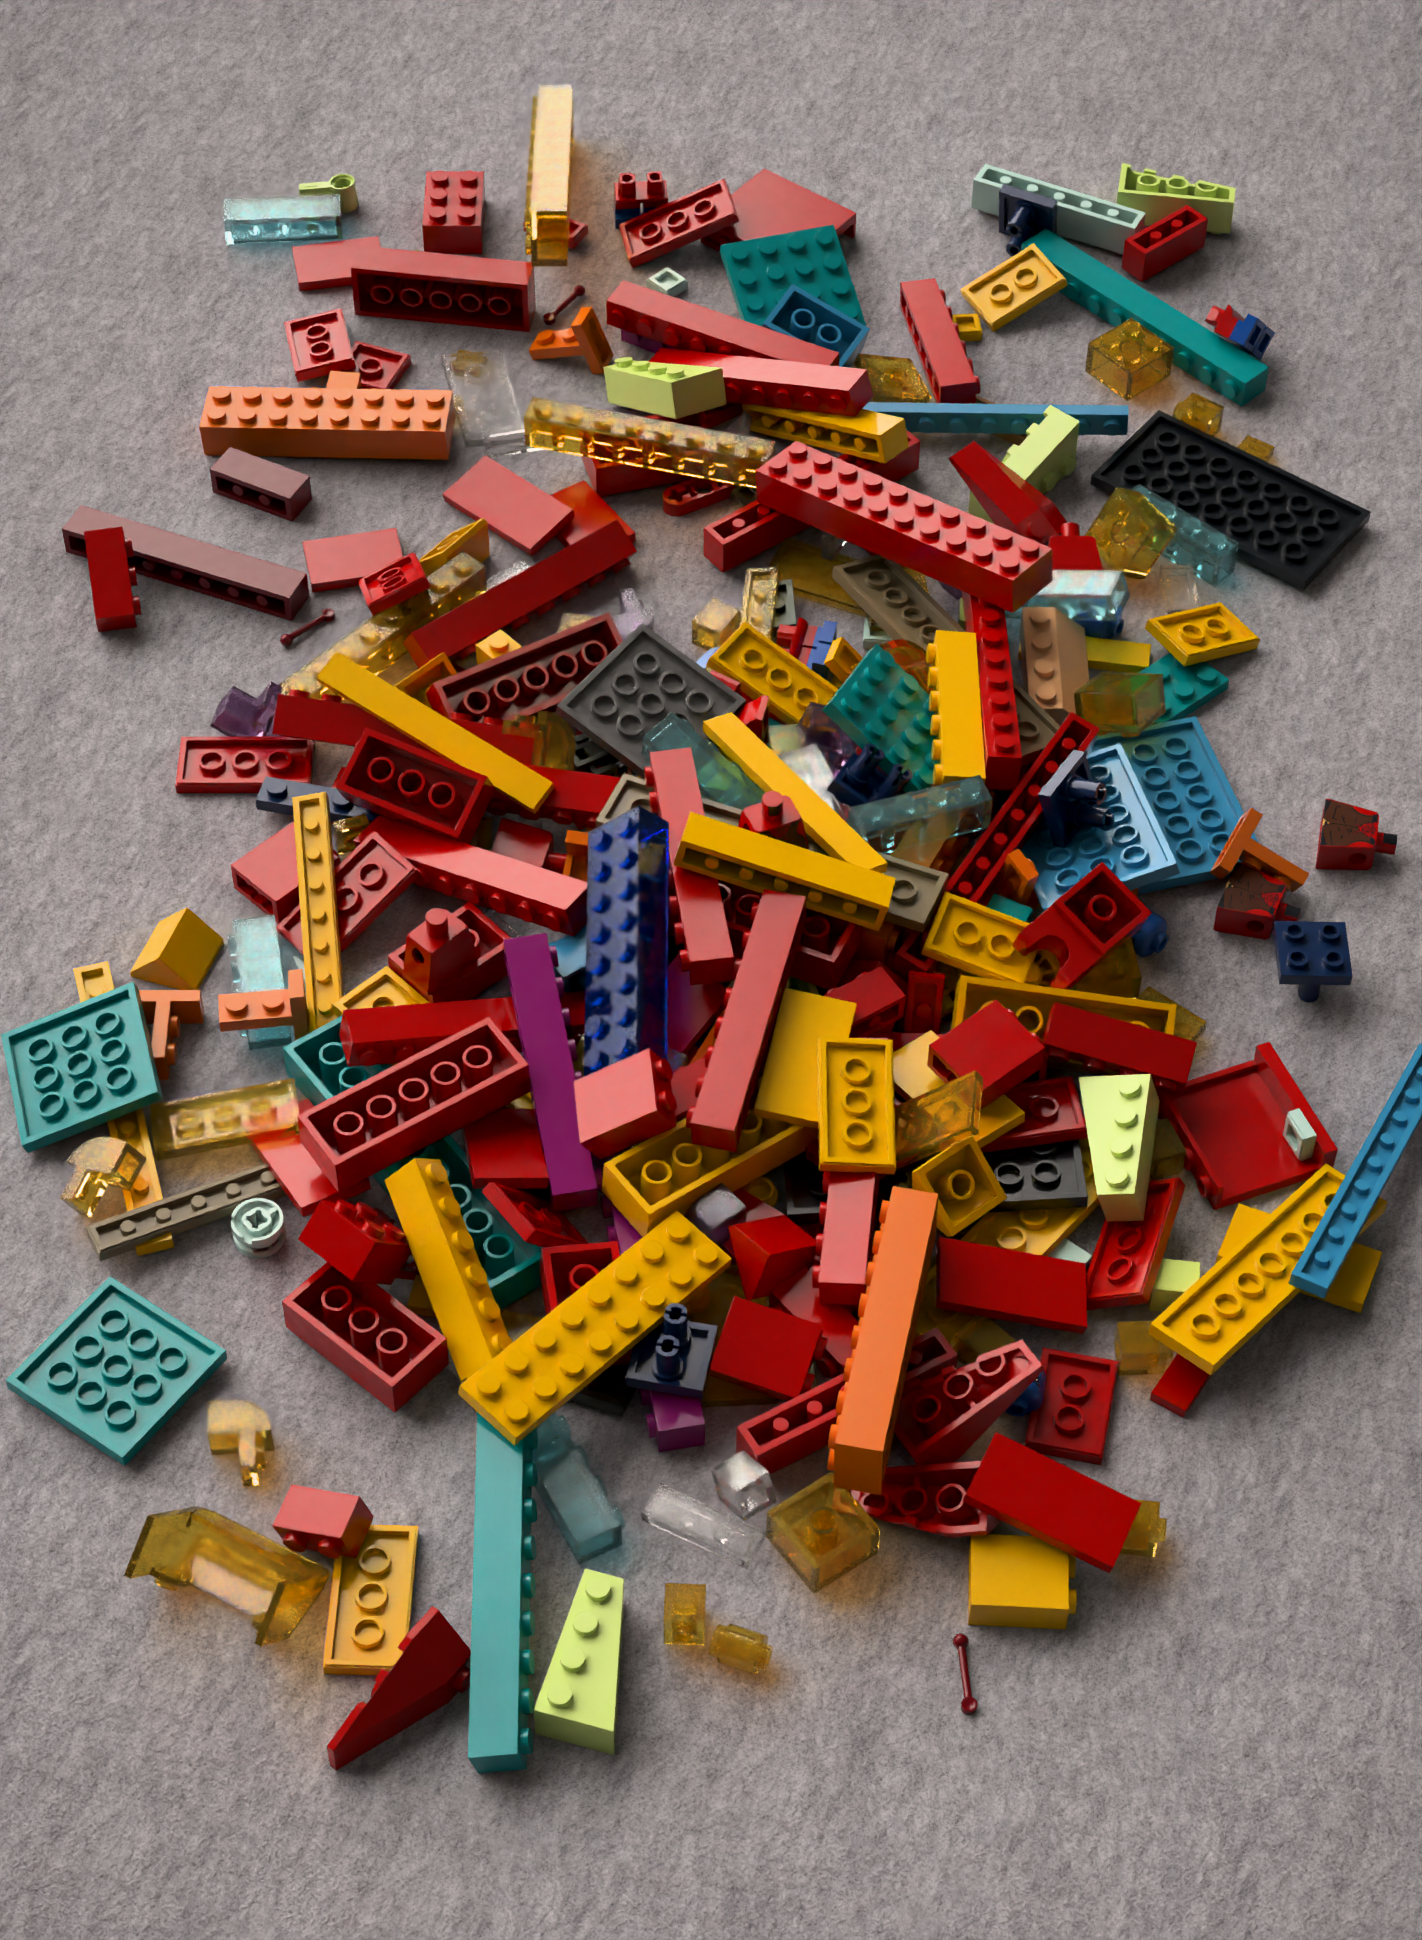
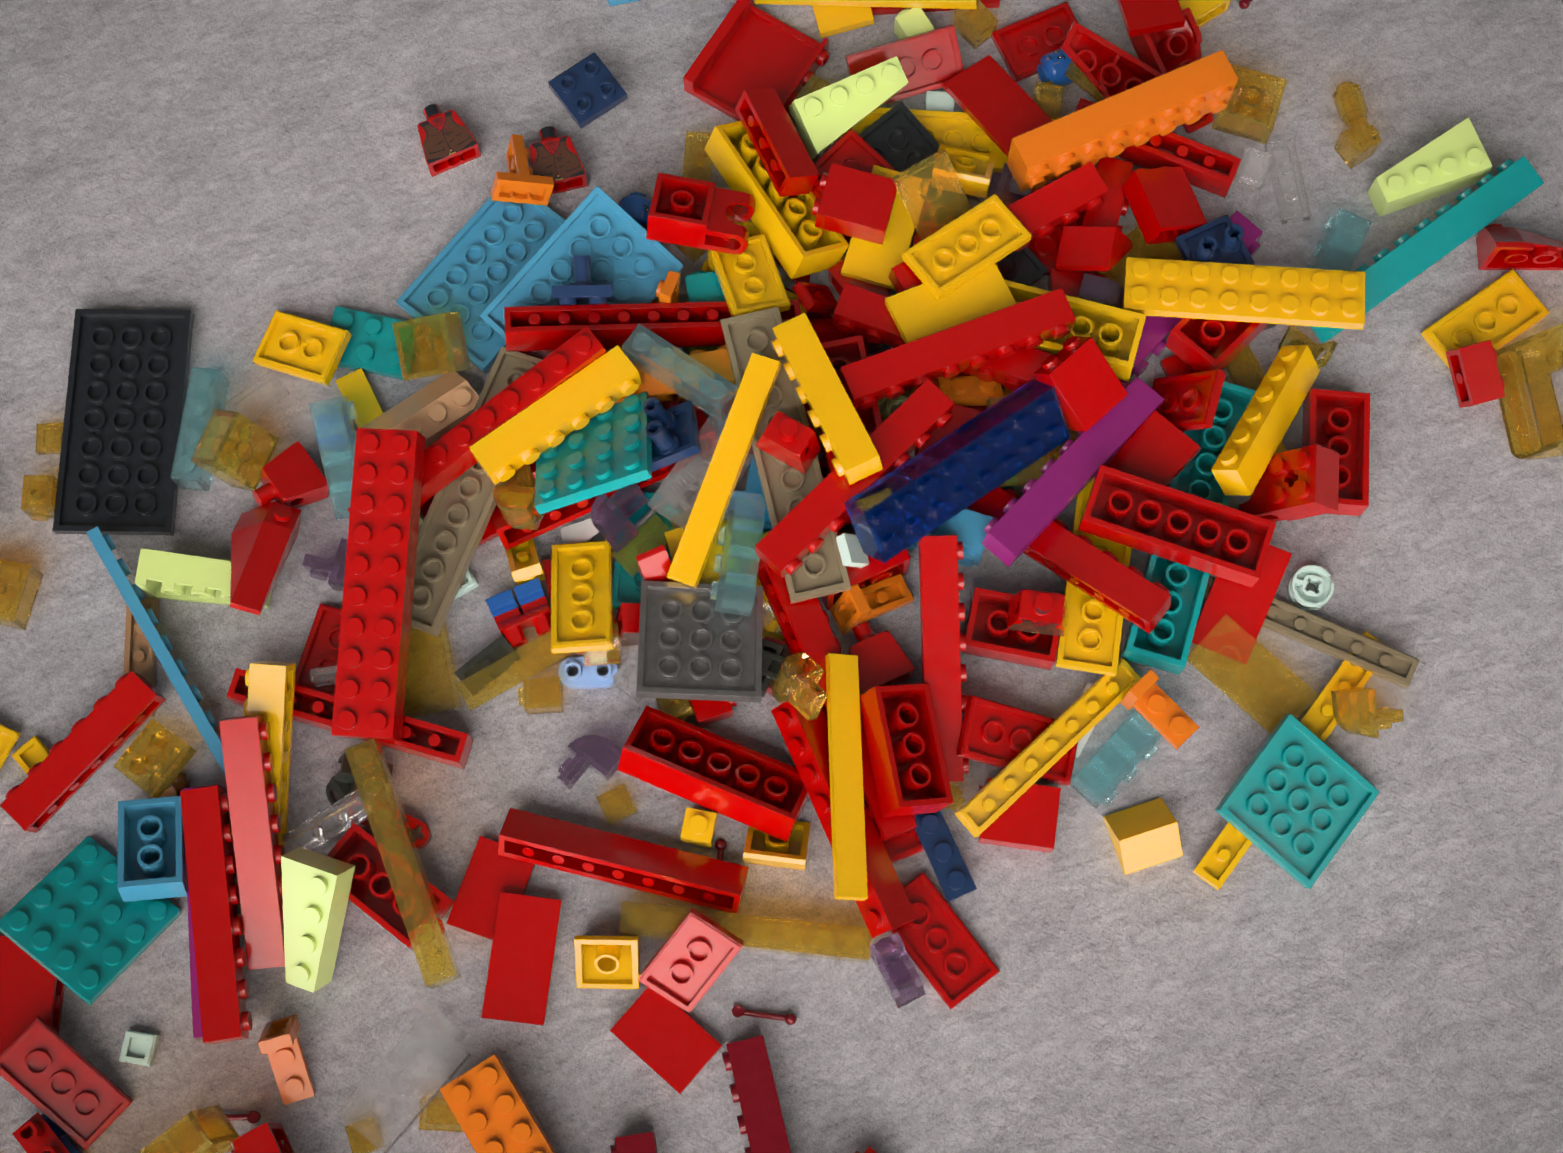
camera: 125 degrees left, 25 degrees up
(116, 1370) = (1476, 587): teal plate -> none
(167, 1011) = (1199, 795): orange bracket -> none
(243, 1429) = (1452, 476): clear yellow brick -> none
(1299, 1134) = (742, 24): light aqua tile -> none

